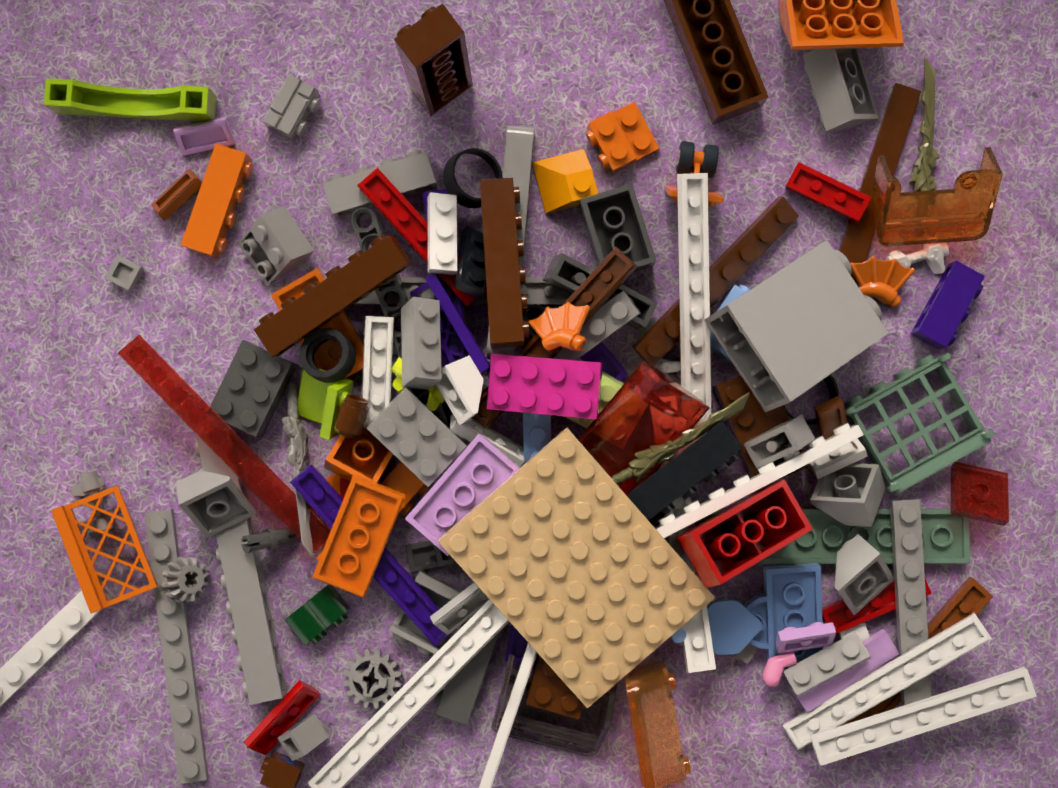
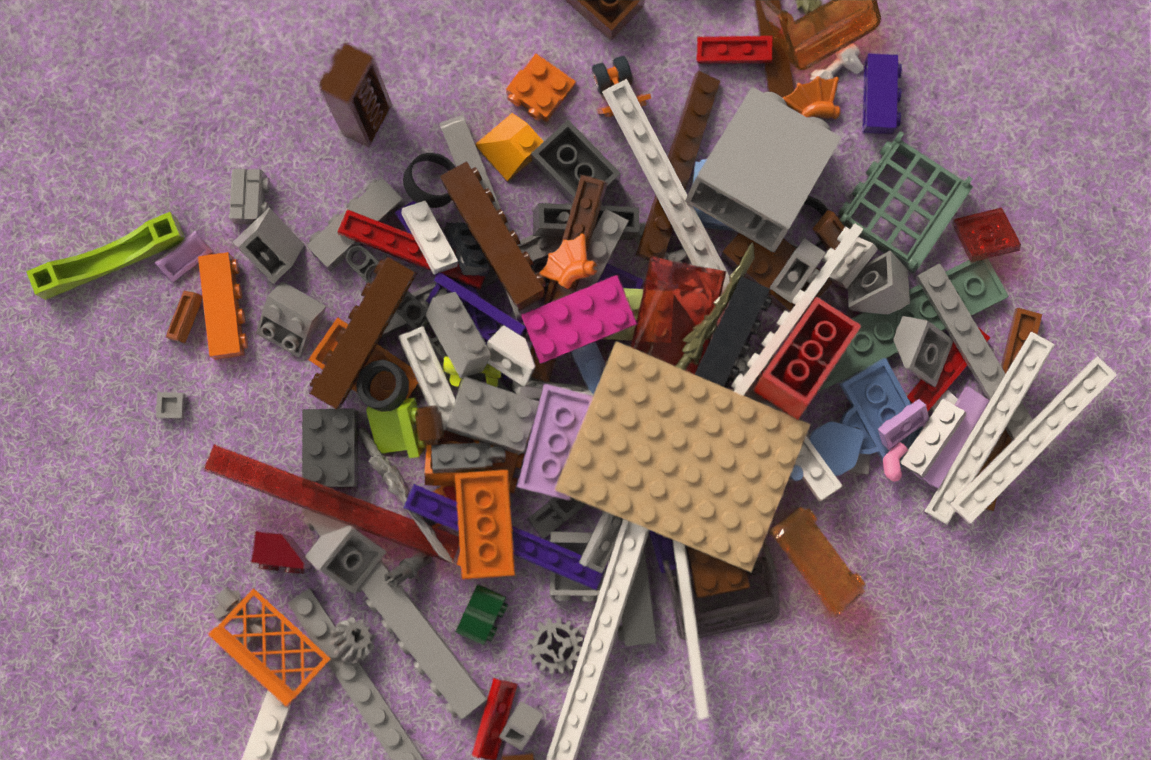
camera: 30 degrees left, 5 degrees down
(156, 463) = (277, 550): none -> dark red slope
(288, 166) = (269, 245): none -> light grey slope
(371, 463) = (465, 457): none -> dark grey hinge

